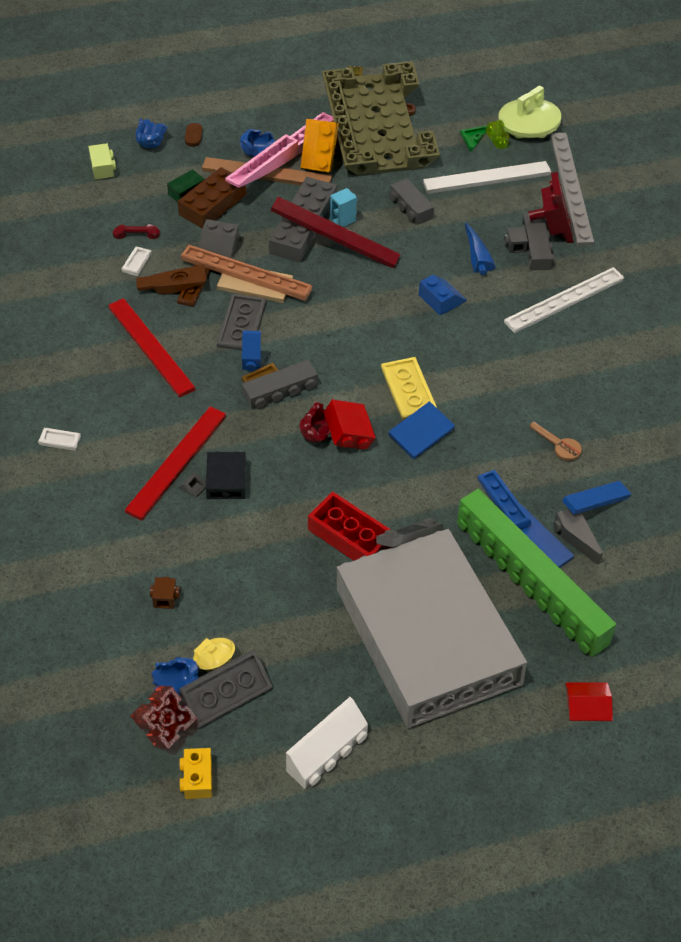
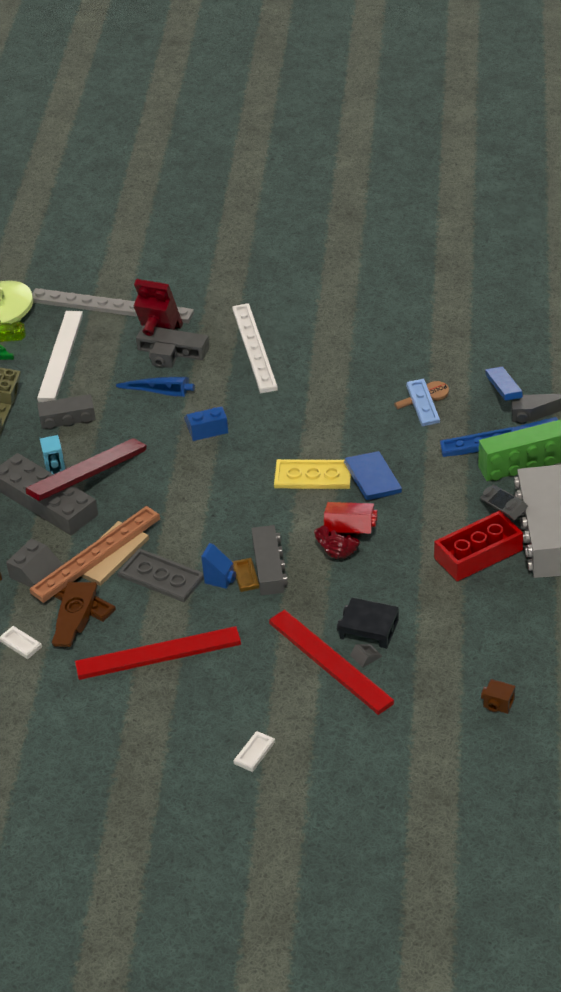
camera: 65 degrees left, 10 degrees down
(542, 442) = (422, 402): none -> light blue tile

